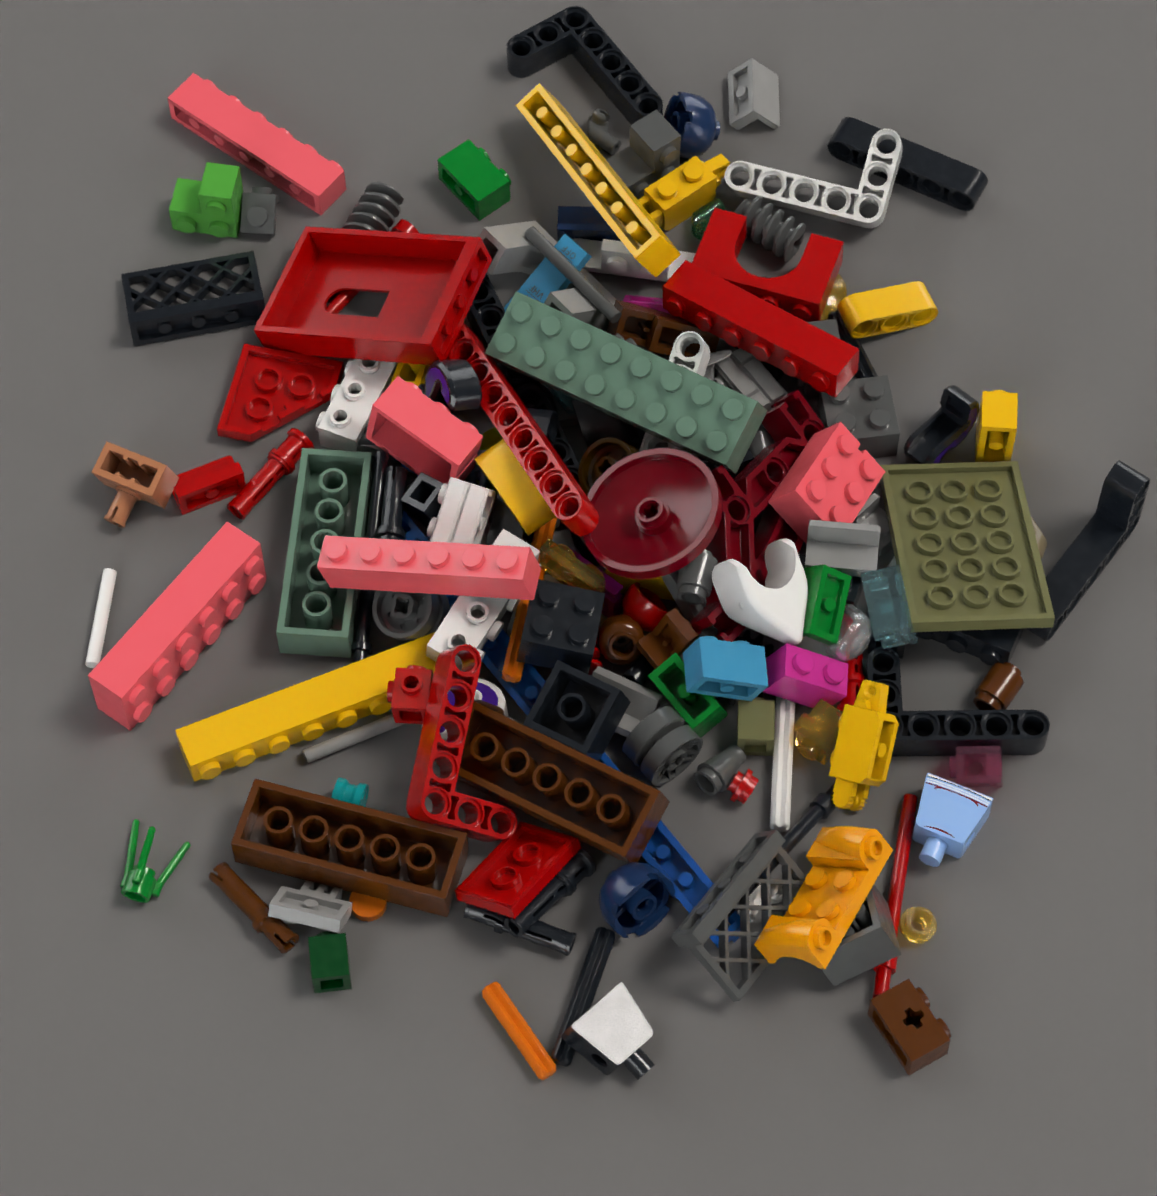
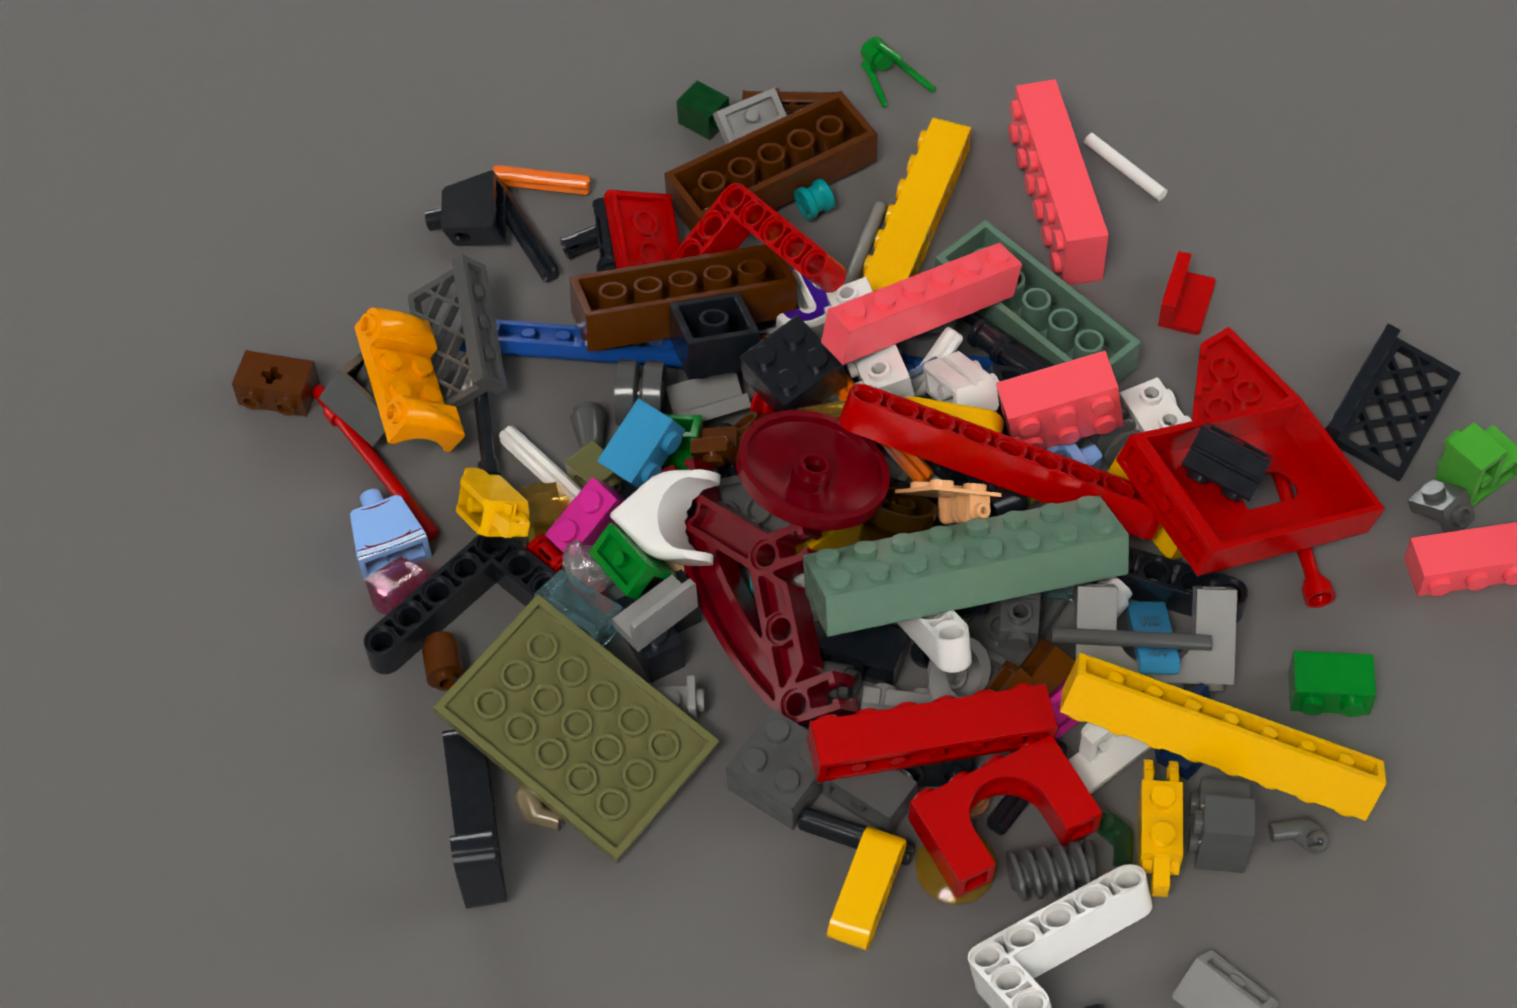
camera: 135 degrees right, 5 degrees down
(133, 479) = (1229, 243): nougat brick -> none
(279, 463) = (1156, 350): red pin -> none
(375, 208) = (1351, 568): dark grey piece -> none
(378, 301) = (1226, 462): none -> black brick
(409, 694) = (848, 251): red brick -> none
(453, 384) = (1083, 440): black animal -> none
(577, 435) = (955, 502): none -> light nougat hinge
(579, 34) = (1388, 884): black beam -> none
(635, 898) = (550, 292): dark blue cylinder -> none
(694, 121) = (1230, 897): dark blue cylinder -> none
(695, 579) = (731, 486): dark grey brick -> none
(742, 786) = (560, 430): red plate -> none
(827, 481) = (730, 663): coral piece -> none
(922, 916) = (333, 447): clear yellow plate -> none
(944, 428) = (704, 821): black animal -> none
(996, 426) = (656, 853): yellow brick -> none

